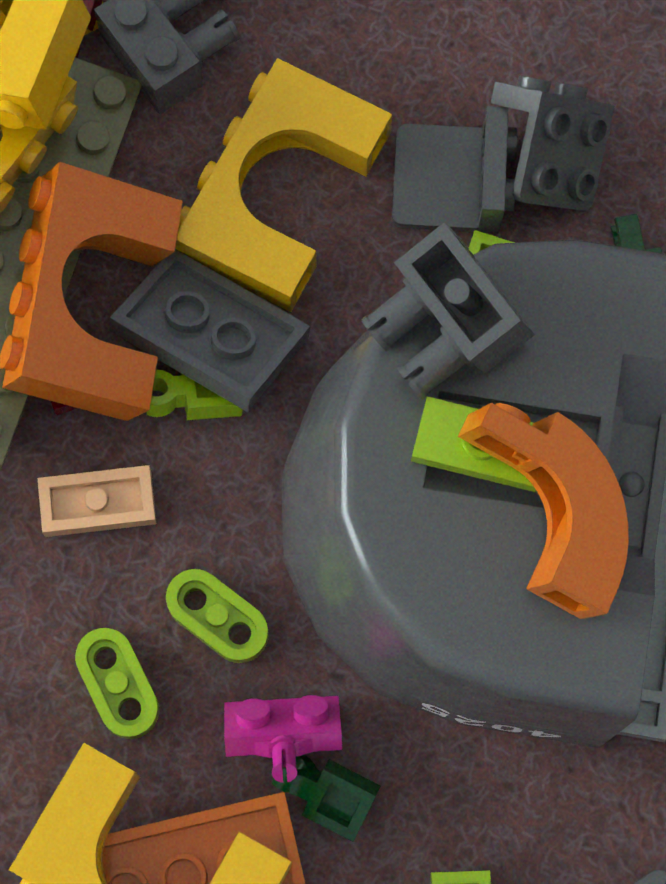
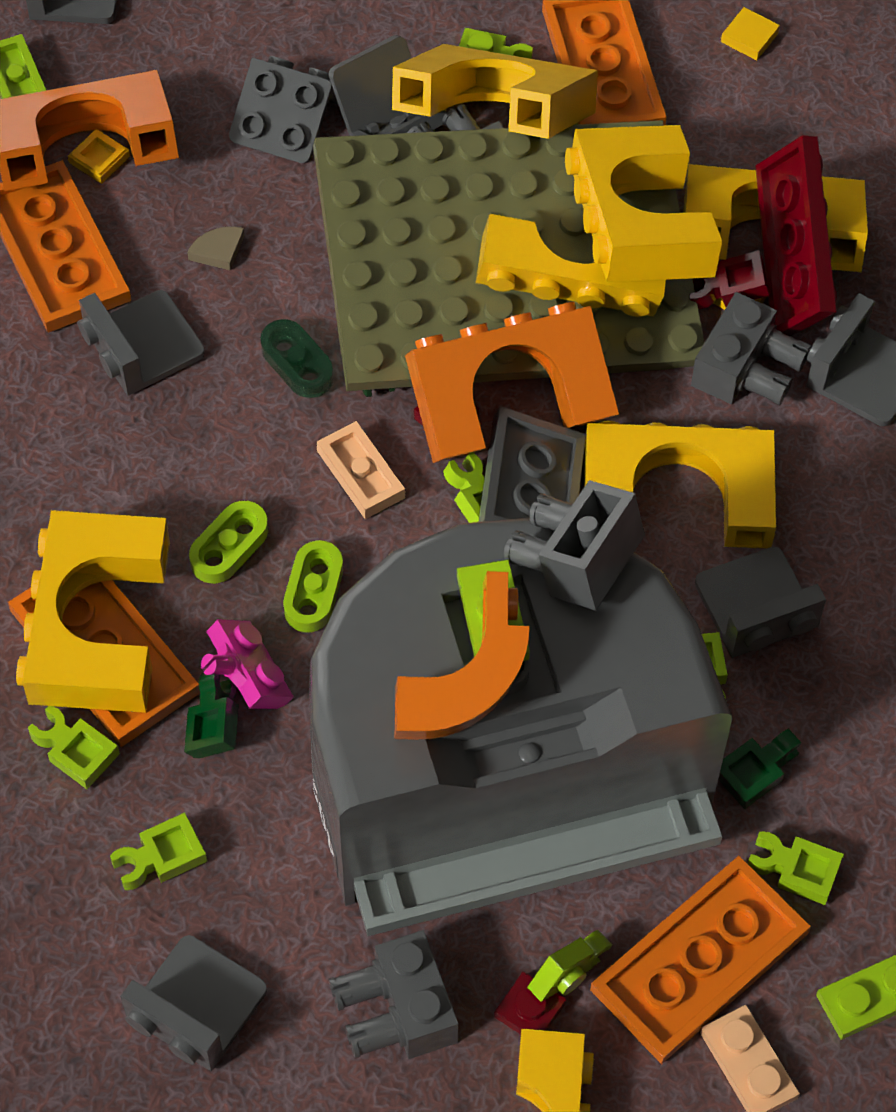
camera: 65 degrees right, 15 degrees down
(560, 143) = (822, 654): dark grey bracket -> none

